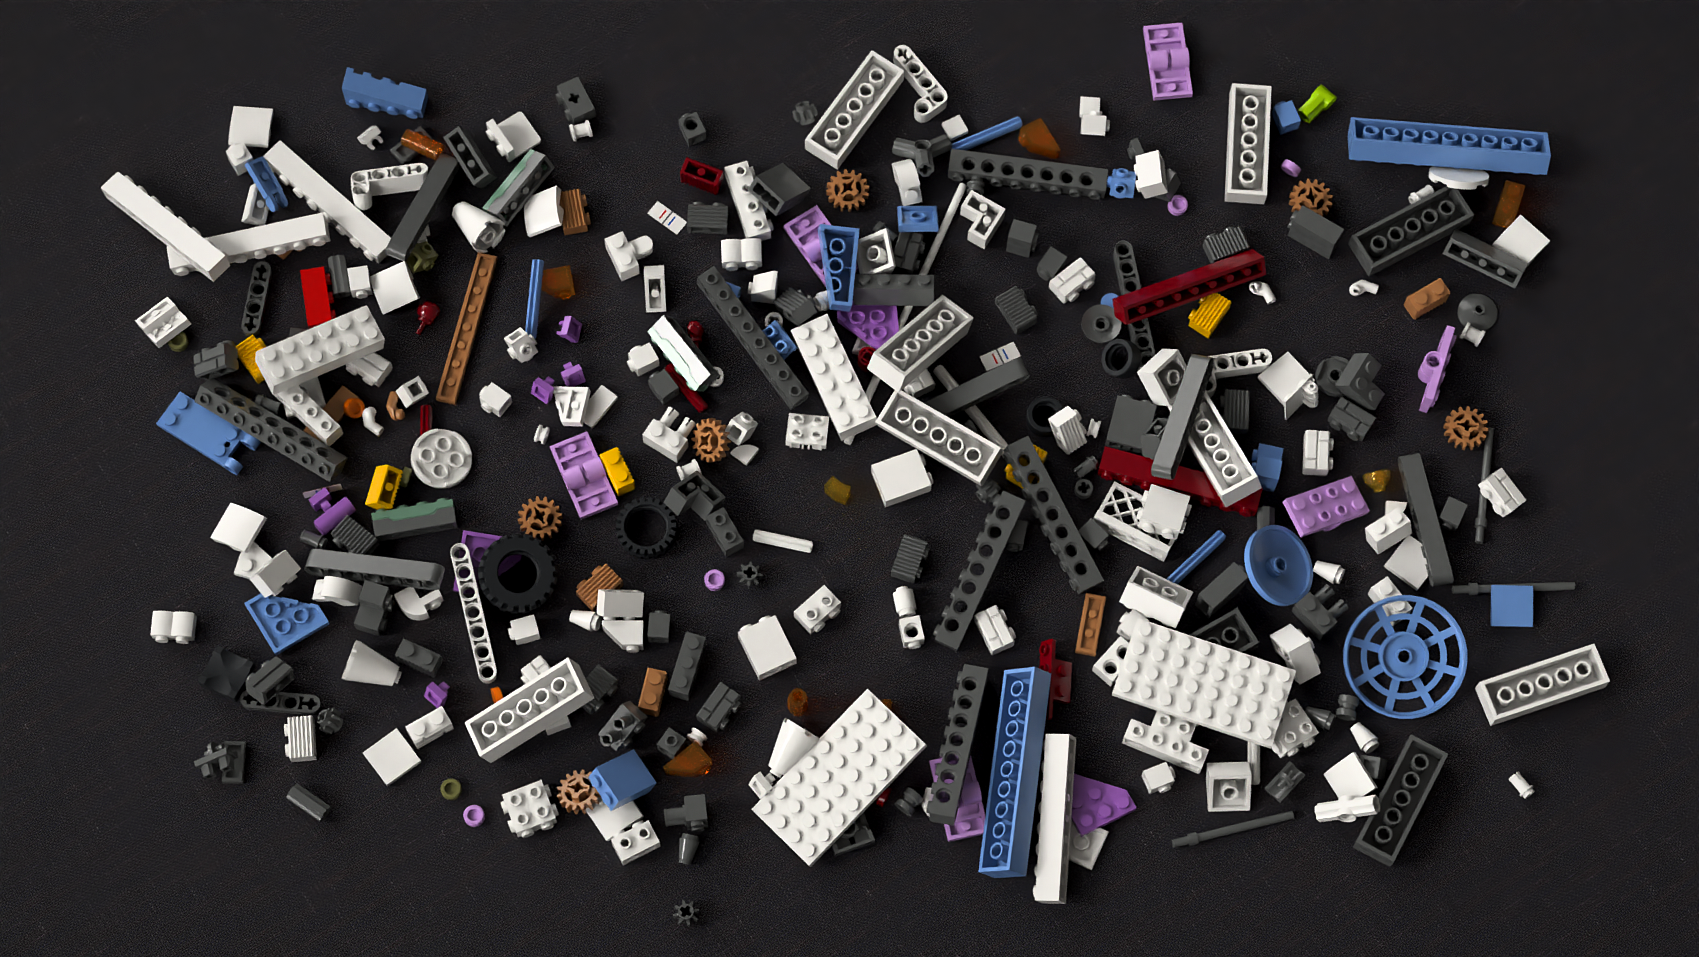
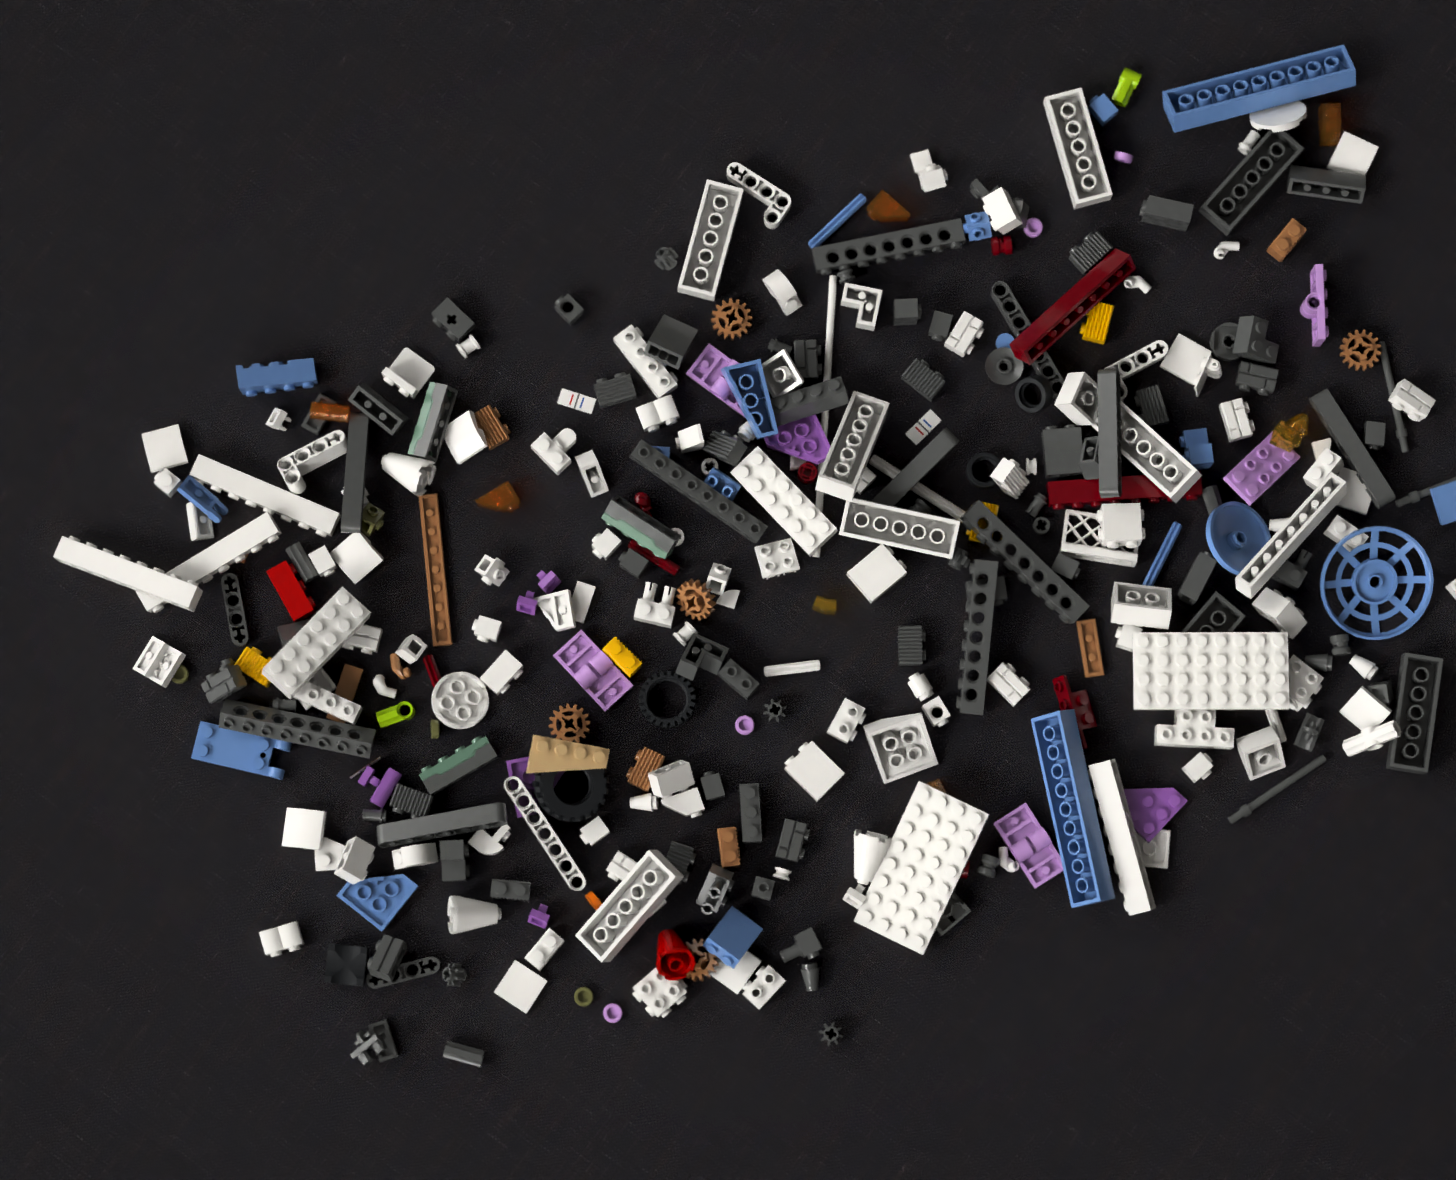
camera: 20 degrees left, 10 degrees up
(301, 738) = (435, 999): white brick -> none
(353, 407) = (363, 681): orange tile -> none
(371, 450) = (393, 714): none -> lime piece
(383, 487) = (420, 746): yellow brick -> none
(427, 314) = (395, 569): dark red piece -> none
(492, 445) = (502, 672): none -> white brick
(515, 536) = (561, 755): none -> tan wing
(534, 297) = (487, 522): medium blue axle -> none
(541, 434) = (541, 646): white bush -> none
(554, 777) = (673, 956): none -> red cone
(570, 329) = (530, 538): medium lavender tile -> none
(689, 762) = (785, 899): clear orange slope -> none
(701, 176) = (595, 352): dark red brick -> none
(797, 695) = (854, 814): clear orange axle -> none
(863, 653) = (900, 746): none -> white slope
(917, 219) = (805, 325): medium blue plate -> none
(922, 152) = (787, 260): dark grey piece -> none
(947, 811) = (1009, 734): dark grey brick -> none
(955, 128) = (806, 223): white tile -> none
(1111, 658) = (1121, 673): white brick -> none
(1139, 210) = (1001, 245): none -> dark red wheel
(1168, 61) = (977, 92): lavender plate -> none
(1315, 192) = (1148, 174): medium nougat gear -> none
(1332, 577) = (1291, 535): none -> white brick
(1360, 484) = (1285, 437): none -> clear yellow brick
(1467, 313) = (1332, 244): dark grey dish -> none
(1472, 334) = (1337, 259): white bush -> none

